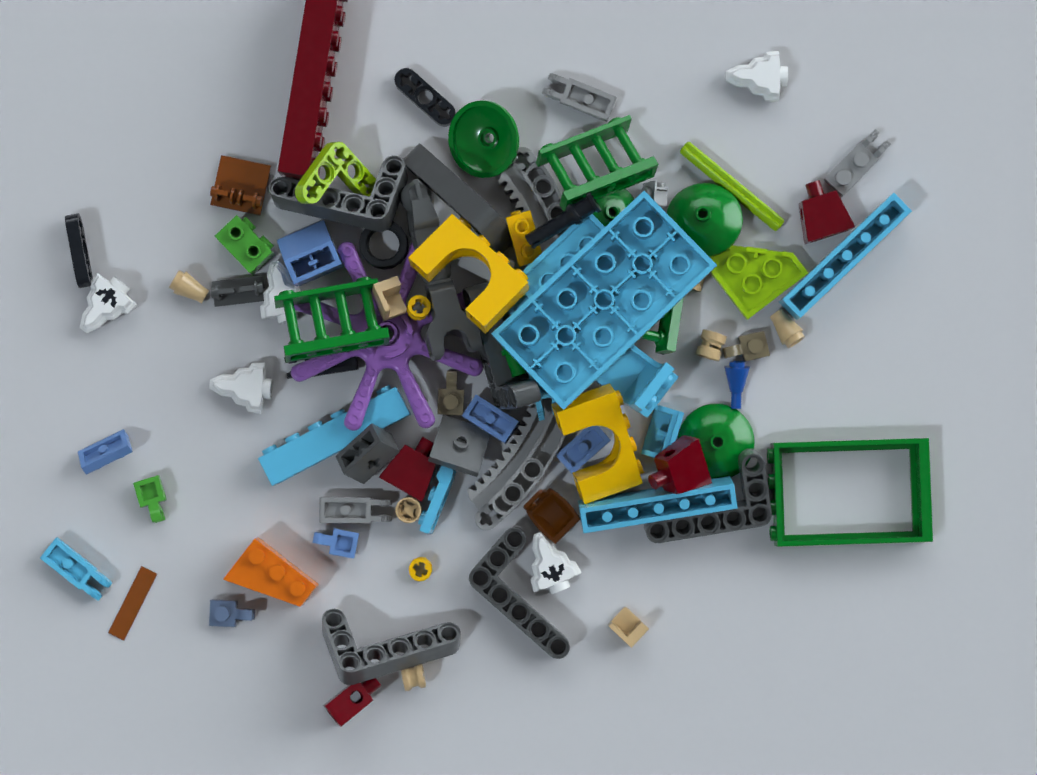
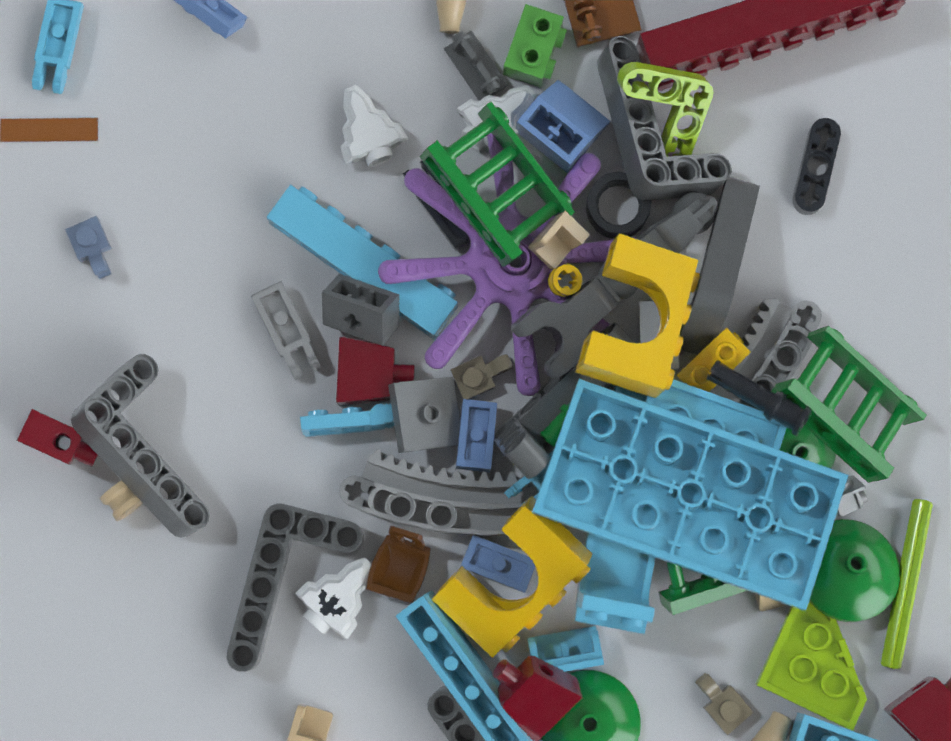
camera: 60 degrees right, 5 degrees down
(150, 494) = (186, 85): bright green plate -> none
(271, 574) = (161, 270): orange wedge -> none
(341, 542) = (239, 333): medium blue plate -> none
(406, 512) = (318, 388): tan wheel -> none
(412, 571) = (262, 450): yellow bush -> none
(471, 142) = (796, 243): green dish -> none
(581, 97) = (915, 349): light grey hinge -> none
(712, 339) = (710, 658): tan wheel -> none
(736, 377) = (680, 707): blue cone -> none

